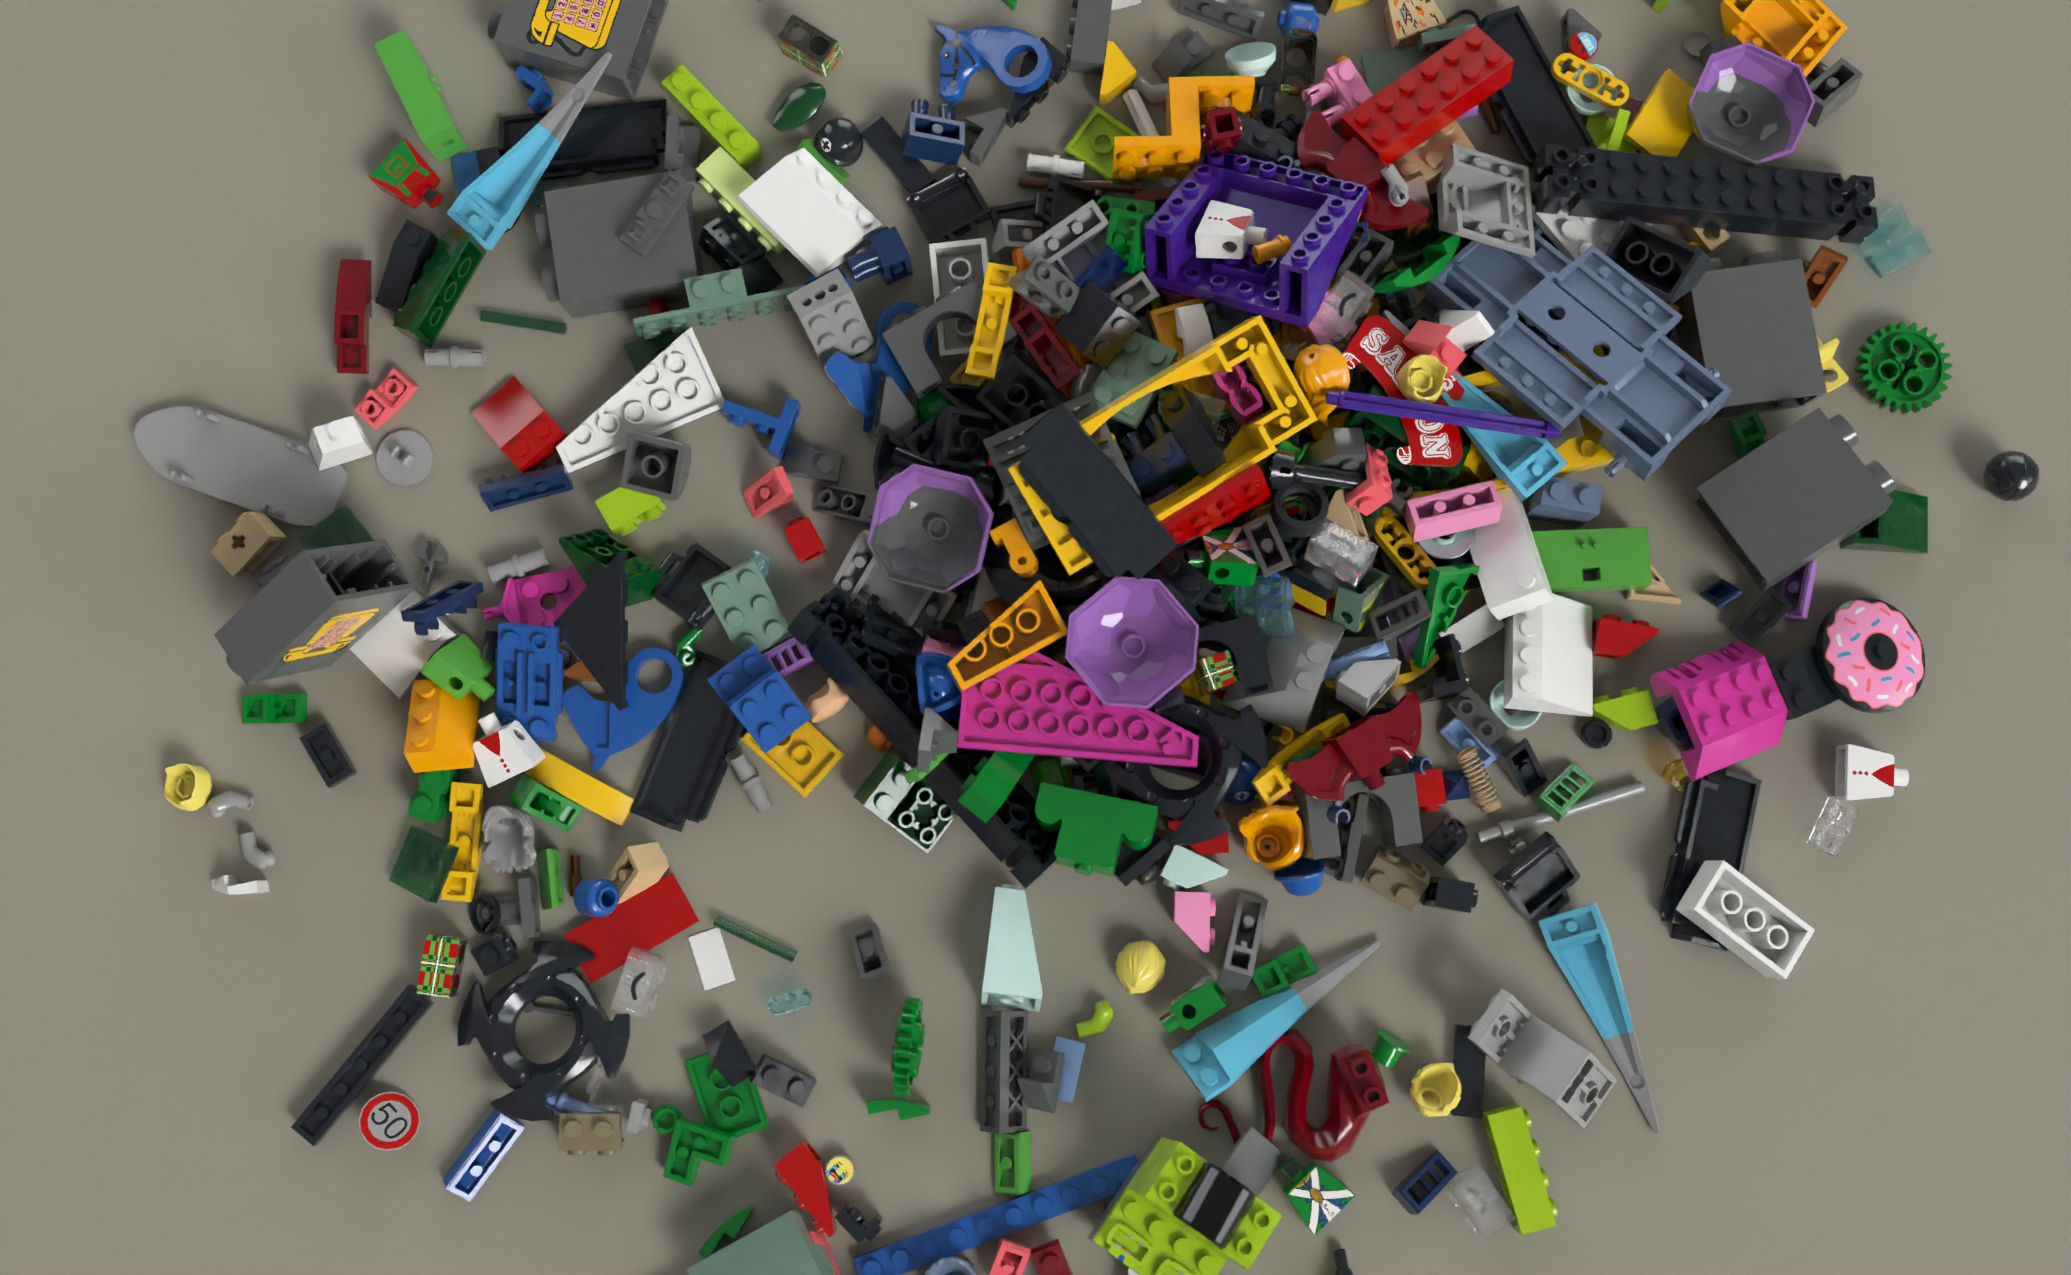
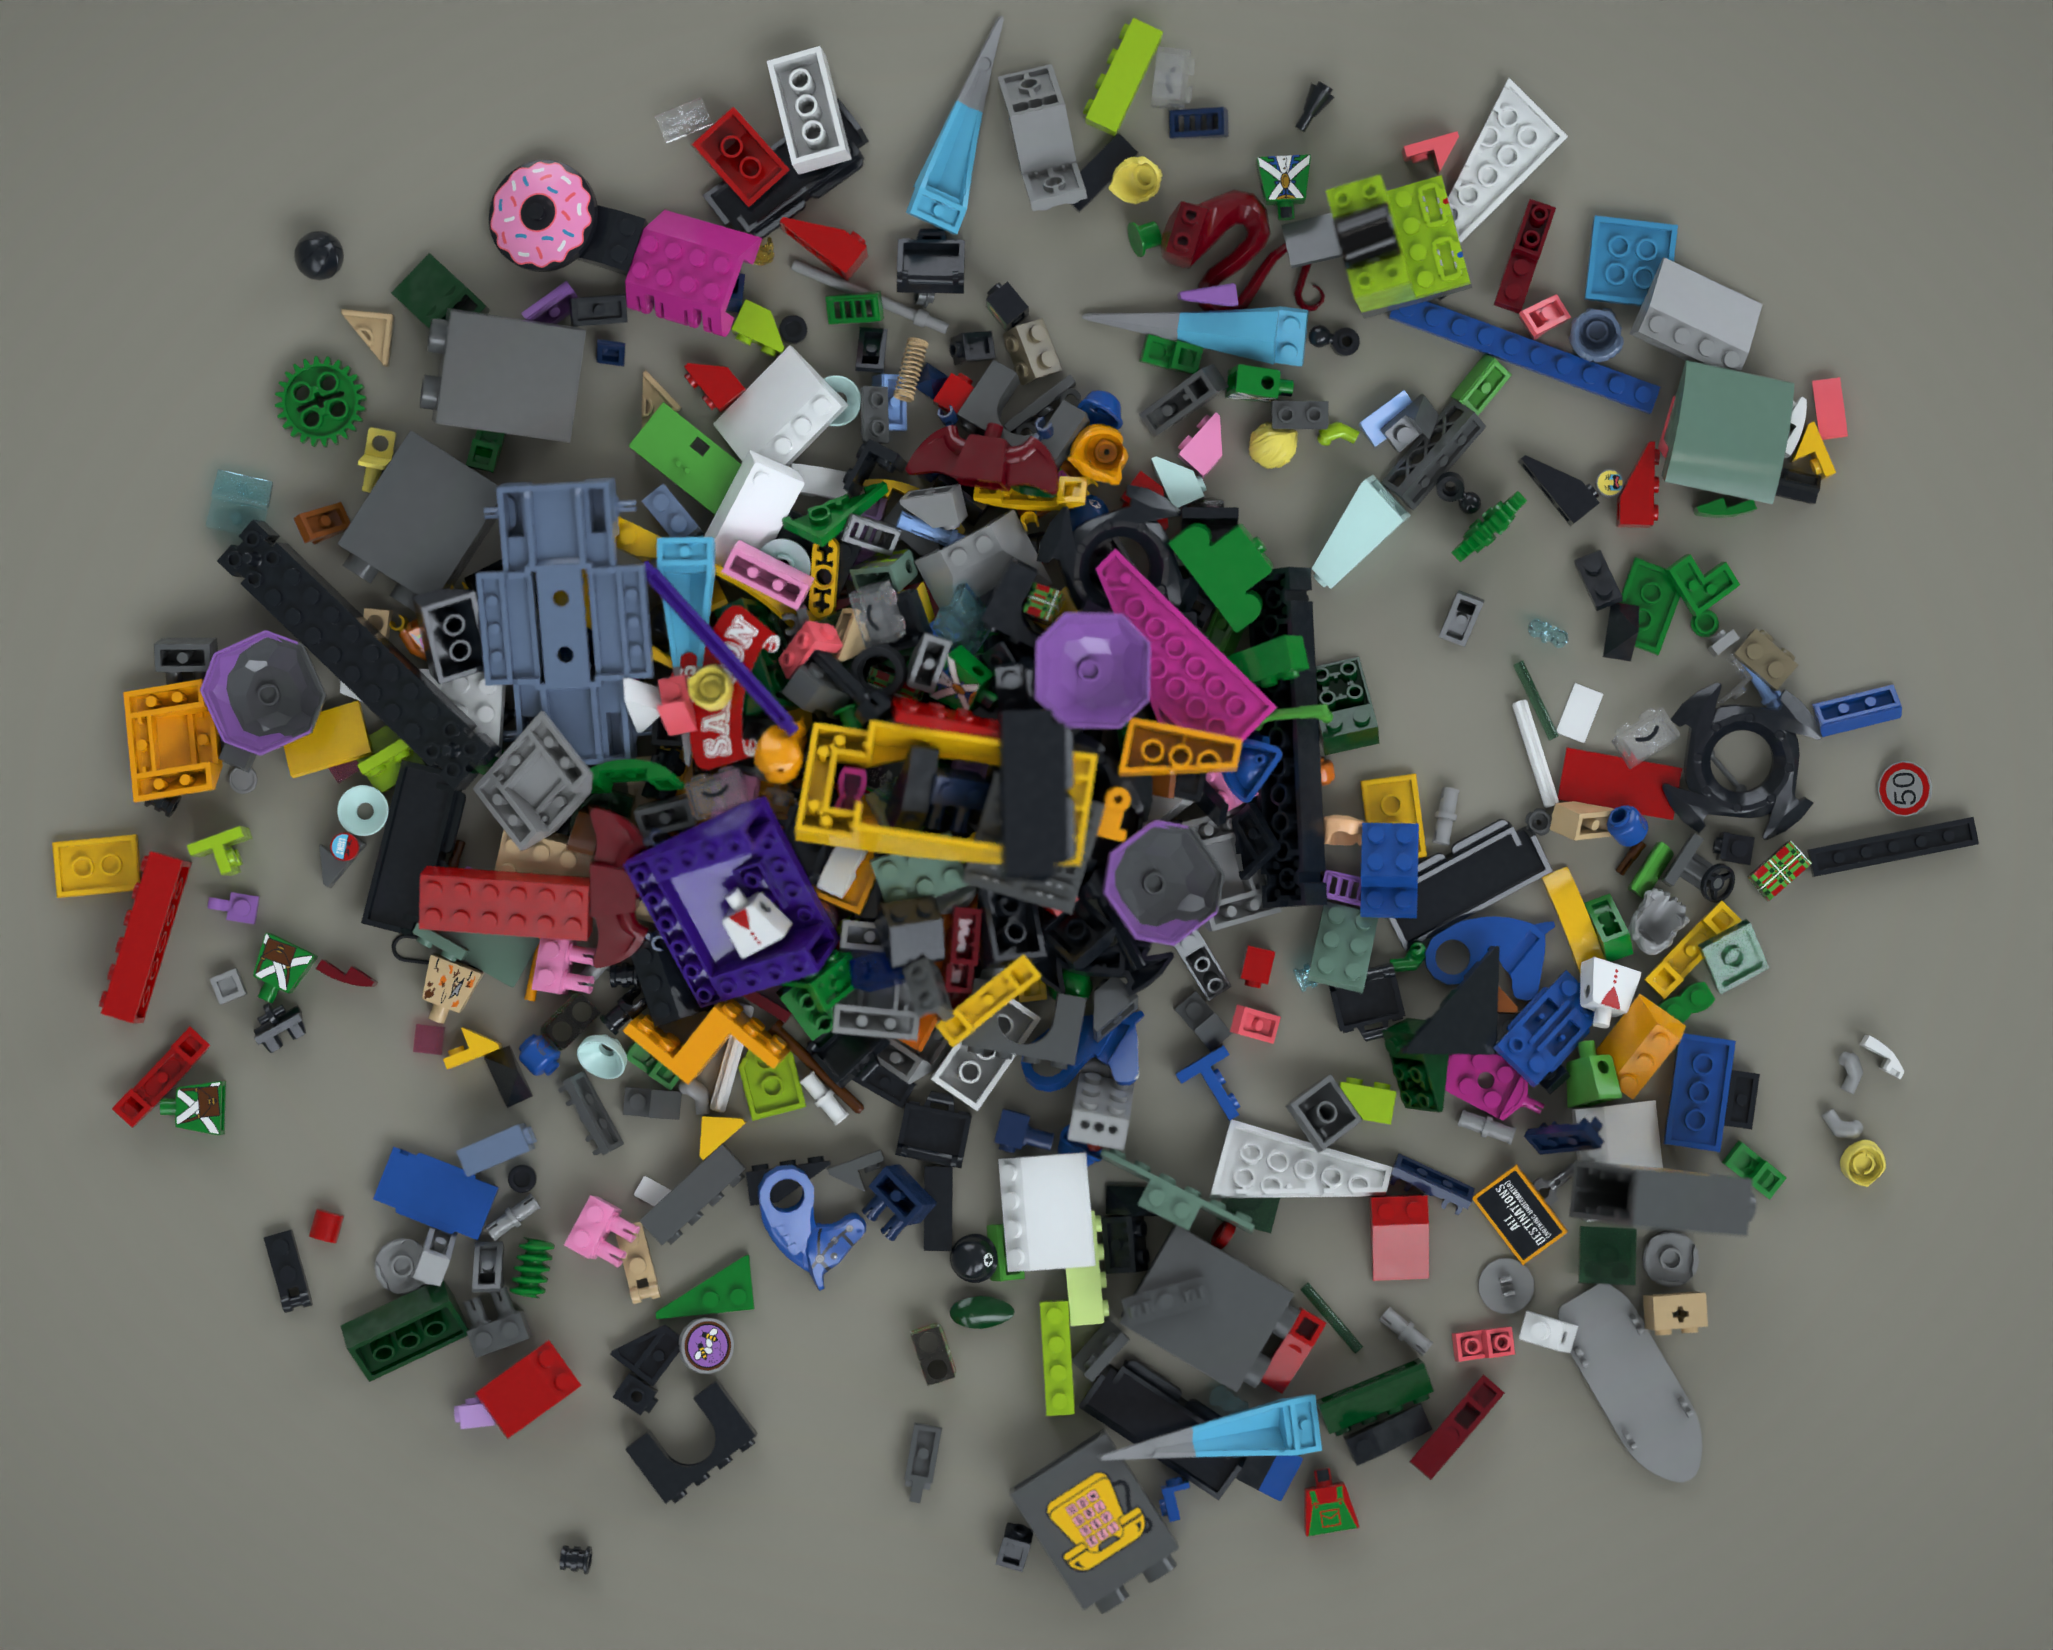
camera: 140 degrees left, 5 degrees up
(365, 732) = (1699, 1092): none -> blue plate
(421, 95) = (1266, 1559): bright green brick -> none
(436, 519) = (1519, 1214): none -> black tile
(528, 268) = (1293, 1350): none -> red slope
(675, 849) = (1538, 814): none -> dark grey plate
(720, 895) = (1535, 753): none -> white axle
(853, 1223) = (1630, 438): black bracket -> none
(866, 1132) = (1565, 492): none -> black slope
(906, 1107) = (1525, 485): green slope -> none
(934, 738) = (1287, 726): dark grey slope -> none
(942, 1055) = (1468, 501): none -> black plate
(1139, 1008) = (1299, 414): none -> dark grey bracket
(1176, 1089) = (1320, 336): none -> black plate
(1224, 121) = (676, 1003): dark red brick -> none
(1271, 249) = (735, 878): light orange pin -> none
(1288, 1051) = (1217, 295): none -> medium lavender slope
(1397, 186) = (598, 847): light grey arm -> none
(1575, 64) = (363, 793): yellow beam -> none
(1622, 825) = (831, 245): none -> red slope
(1765, 834) = (740, 156): none -> red slope
(1866, 773) = (624, 134): white torso -> none
(1911, 458) = (374, 330): none -> tan tile

